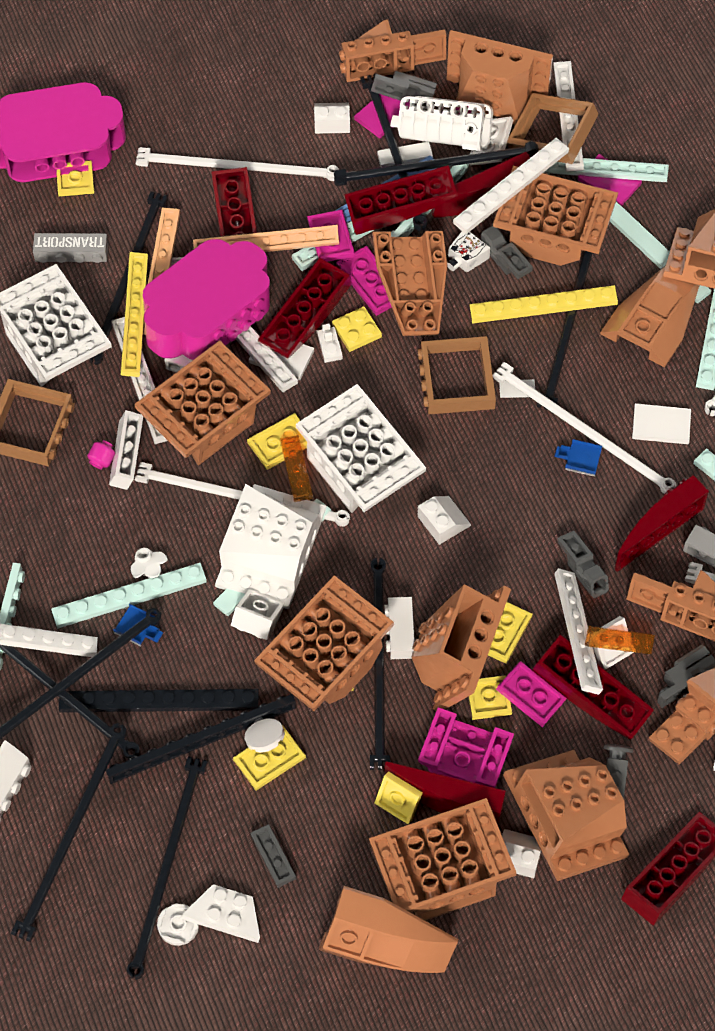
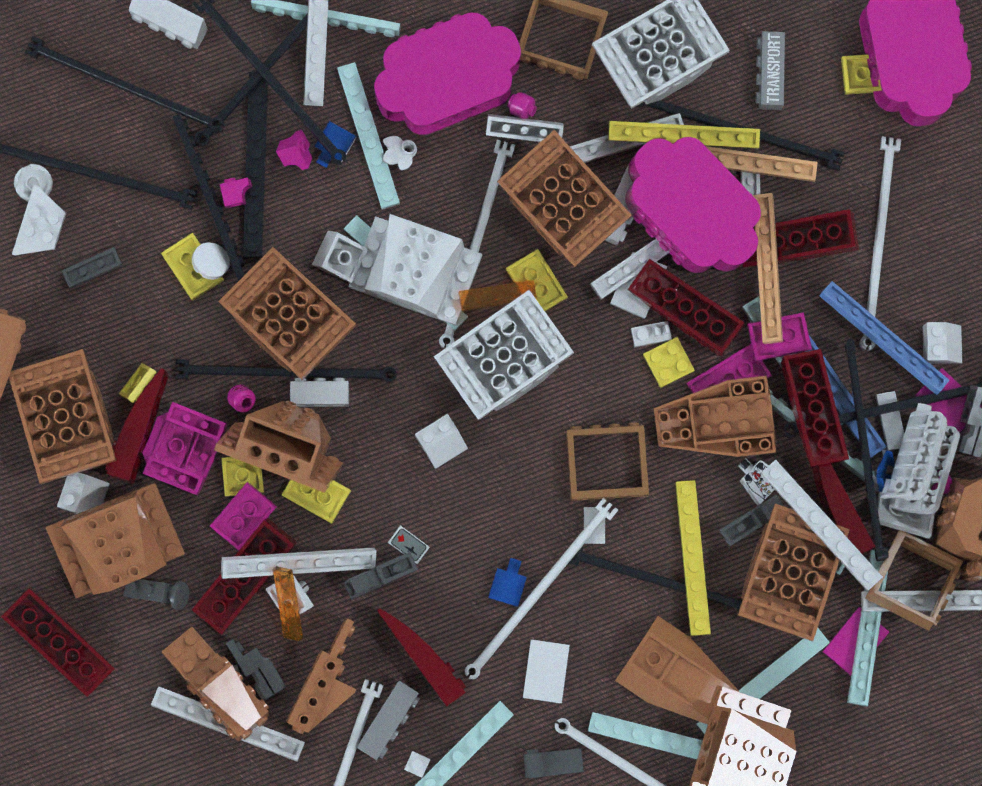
camera: 85 degrees right, 20 degrees up
(67, 518) = (447, 73): none -> dark pink brick
(146, 657) = (295, 150): none -> dark pink brick
(191, 712) = (234, 191): none -> dark pink brick
(328, 155) = (884, 338): none -> medium blue plate
(409, 698) = (241, 398): none -> dark pink head
(453, 151) = (880, 478): none -> blue piece
(546, 547) = (407, 542): none -> sticker

